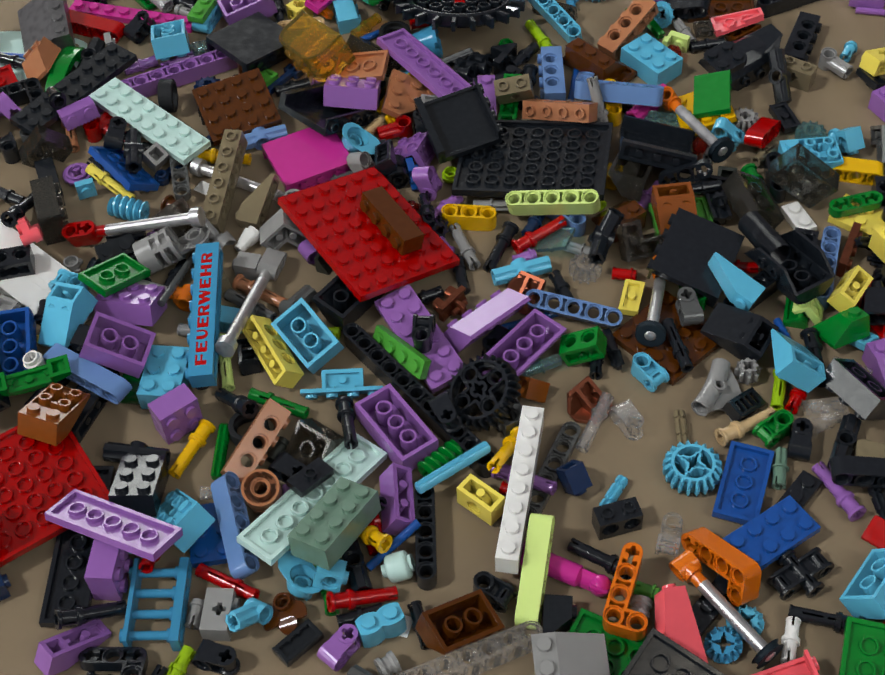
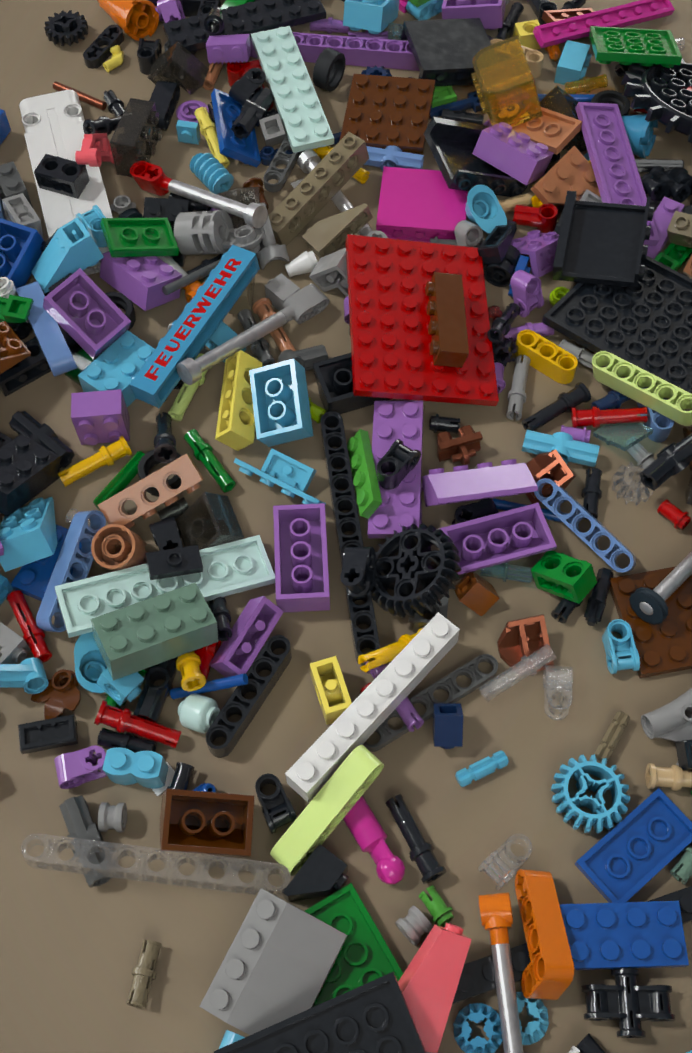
camera: 30 degrees right, 10 degrees up
(247, 358) = (206, 400): black slope -> none
(346, 416) = (262, 514): black pin -> none
(438, 458) = (323, 622): green piece -> none
(452, 467) = (323, 637): medium azure axle -> none
(461, 275) = (492, 418): black piece -> none
(617, 518) = (463, 802): black brick -> none
(625, 588) = (409, 898): orange beam -> none
(631, 297) = (662, 547): light yellow plate -> none
(679, 351) = (667, 662): black pin -> none

